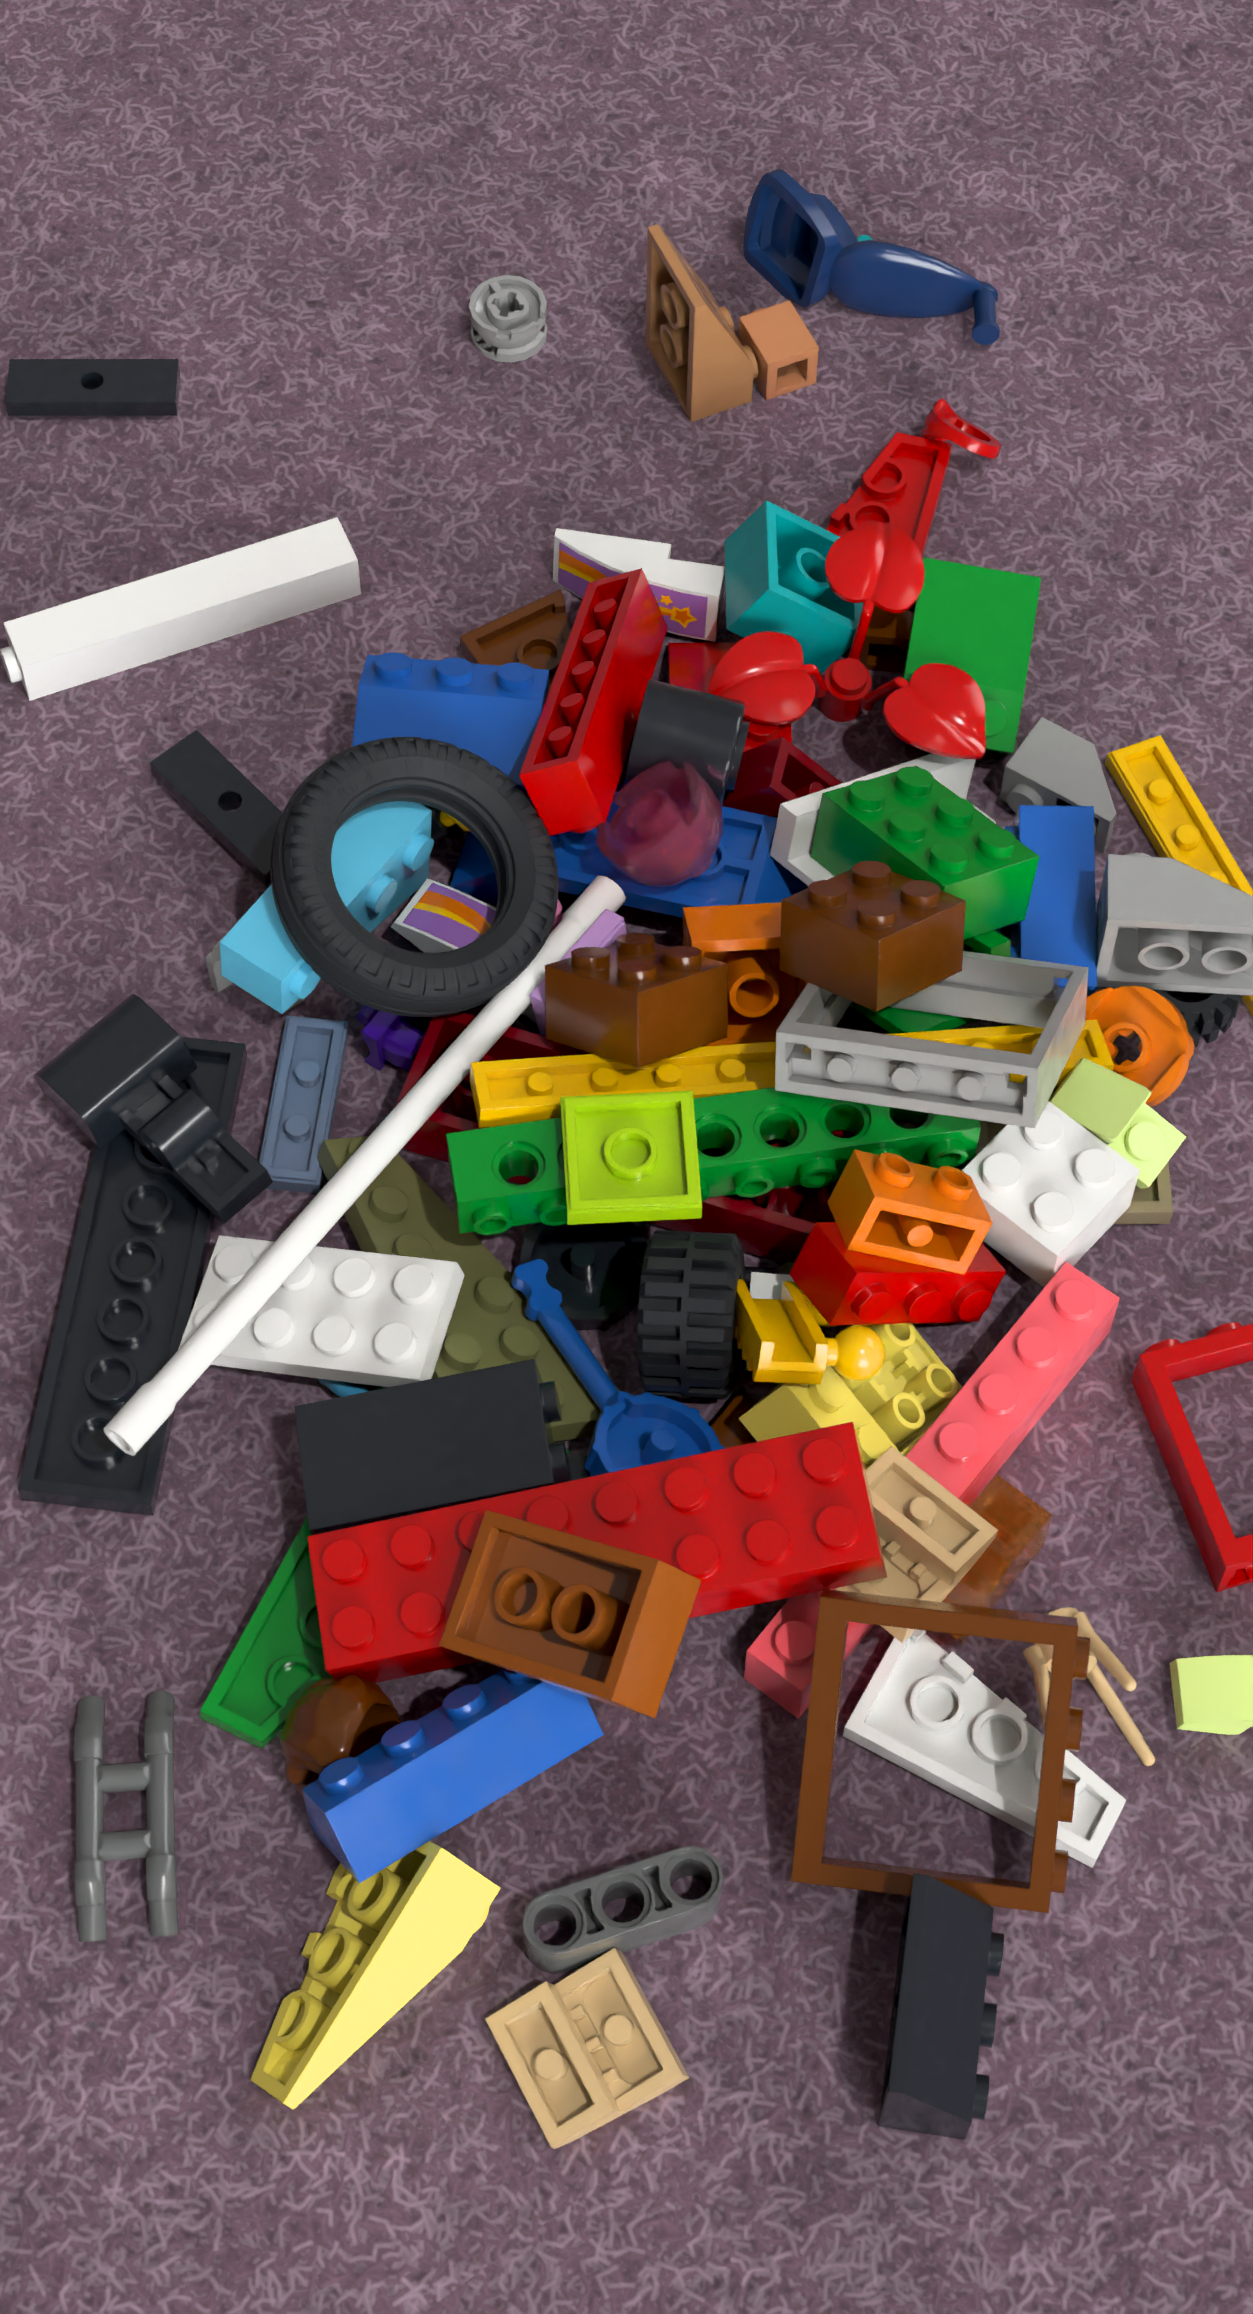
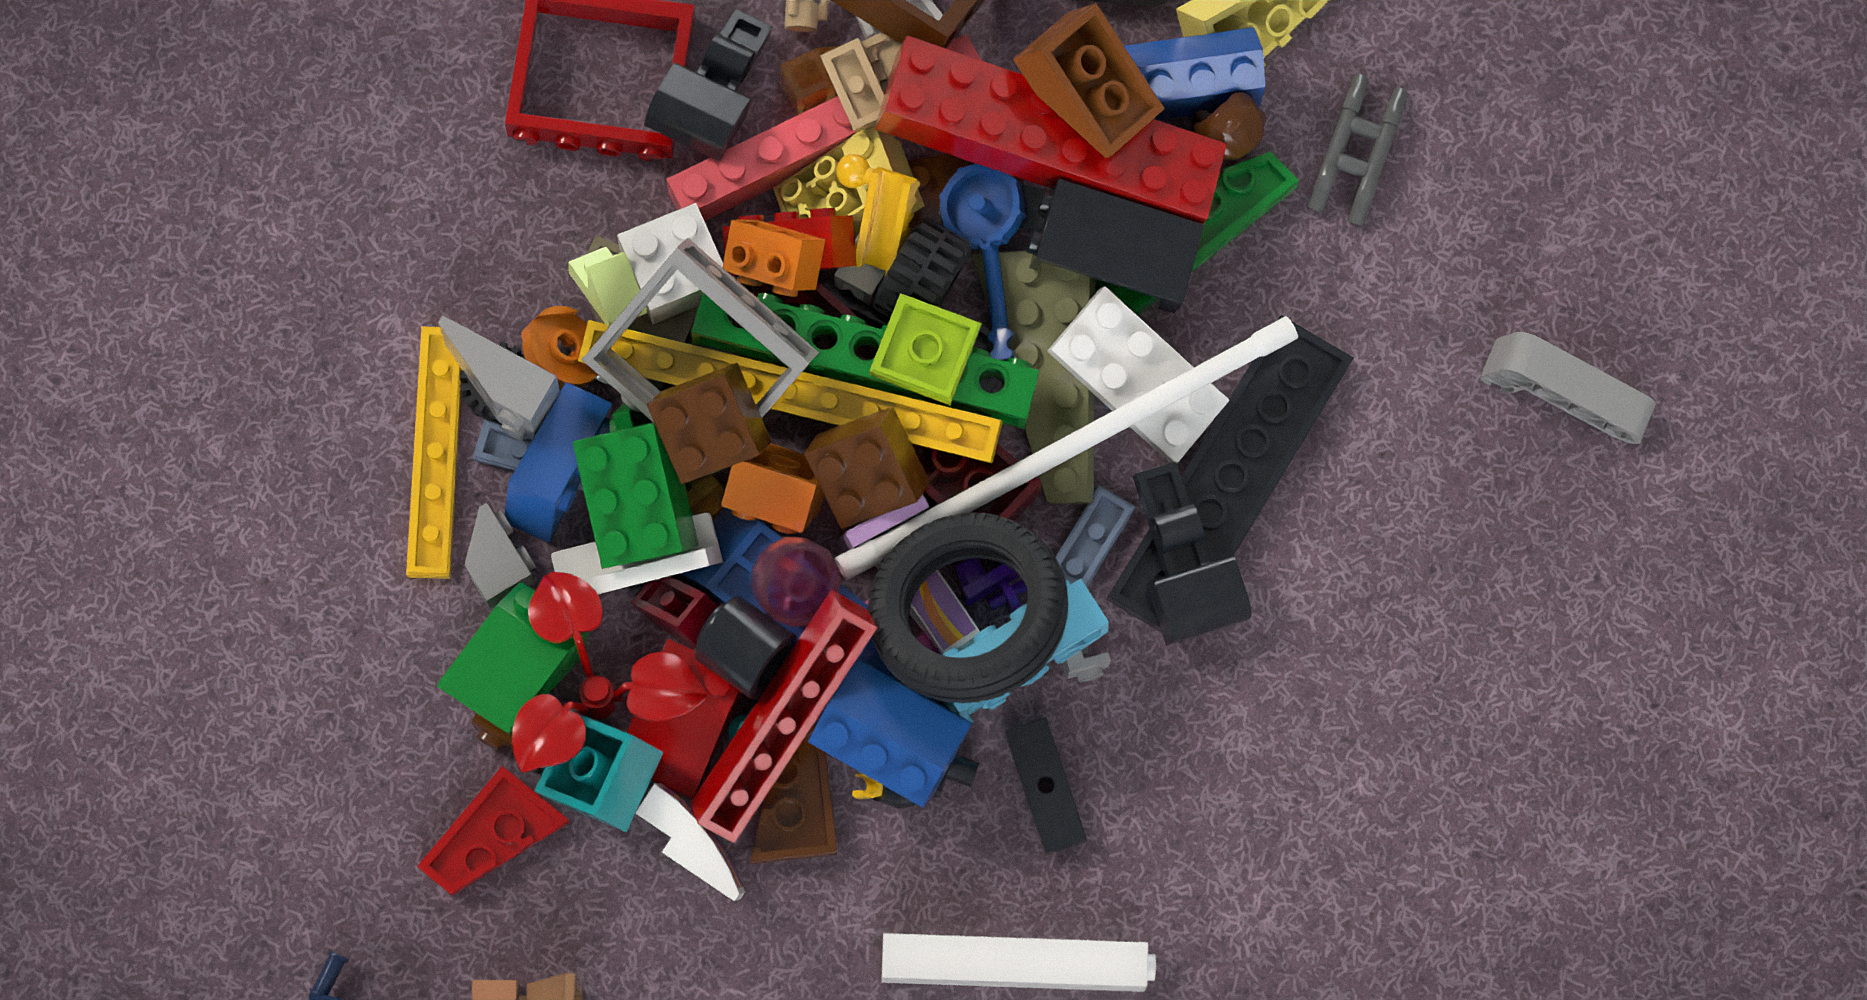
camera: 160 degrees left, 15 degrees up
(945, 425) = (421, 878): red piece -> none
(1129, 1402) = (704, 105): none -> black plate

